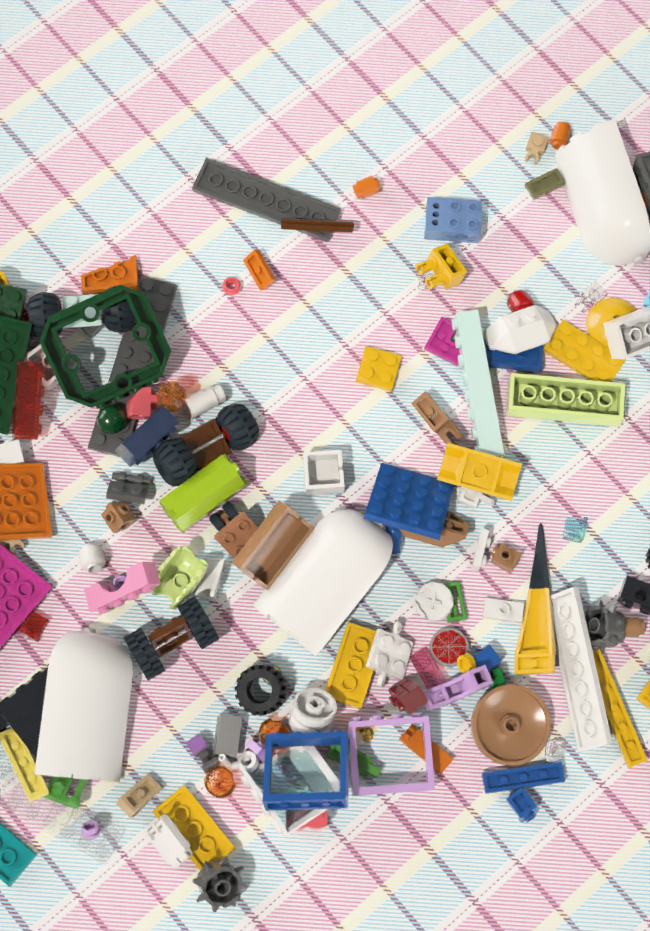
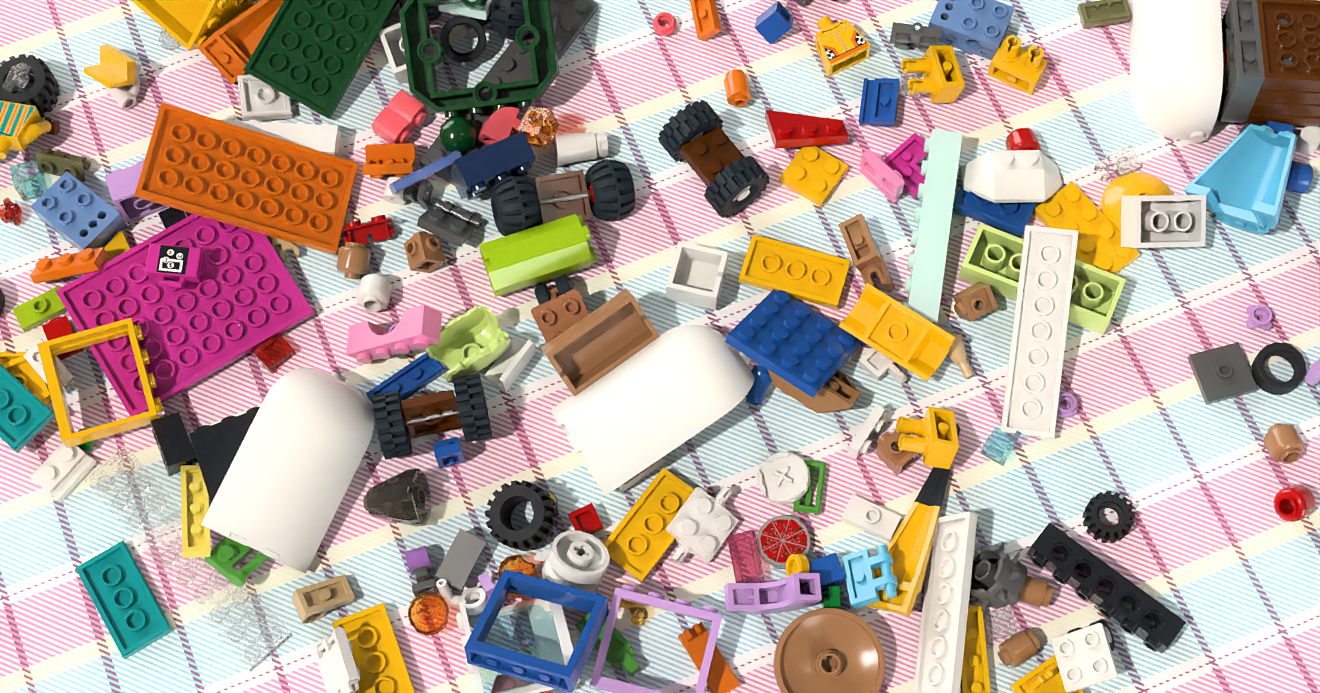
camera: 25 degrees right, 5 degrees down
(27, 399) = (364, 81): clear red brick -> none
(61, 419) = (400, 118): none -> coral brick
(66, 453) = (389, 159): none -> orange bracket
(67, 538) = (353, 260): none -> medium nougat head
(76, 508) = (377, 227): none -> red hinge
(81, 474) = (420, 196): none -> dark grey leg
(90, 830) = (245, 618): lavender plate -> none
(98, 352) = (463, 57): none -> black tyre
(98, 456) = (424, 172): none -> tile
(140, 615) = (411, 377): none -> blue tile
(168, 706) = (400, 499): none -> clear smoke cone
(190, 659) = (448, 452): none -> blue bracket
(302, 320) = (737, 88): none -> orange brick
(306, 381) = (700, 141): none -> black plate
(306, 677) = (586, 520): none -> red plate
(312, 261) = (774, 22): none -> blue panel
(361, 338) = (804, 130): none -> red wing
(365, 265) = (839, 45): none -> yellow torso
(390, 446) = (795, 270): none -> yellow plate
(407, 696) = (705, 583): dark red brick -> none
(408, 300) = (879, 102): none -> blue plate
(426, 244) = (906, 35): none -> dark grey plate
(429, 357) = (881, 176): none -> bright pink plate
(497, 243) = (1017, 66): none -> yellow brick
(512, 656) = (861, 578): none -> medium azure plate
(524, 430) = (976, 293): none -> medium nougat brick
(526, 474) = (959, 357): none -> tan cone
(531, 539) = (936, 437): none -> yellow brick
(577, 440) = (1039, 331): none -> white plate
(613, 482) = (1071, 401): none -> lavender plate
(615, 657) = (999, 623): none -> clear plate
(633, 670) = (1018, 648): none -> medium nougat brick

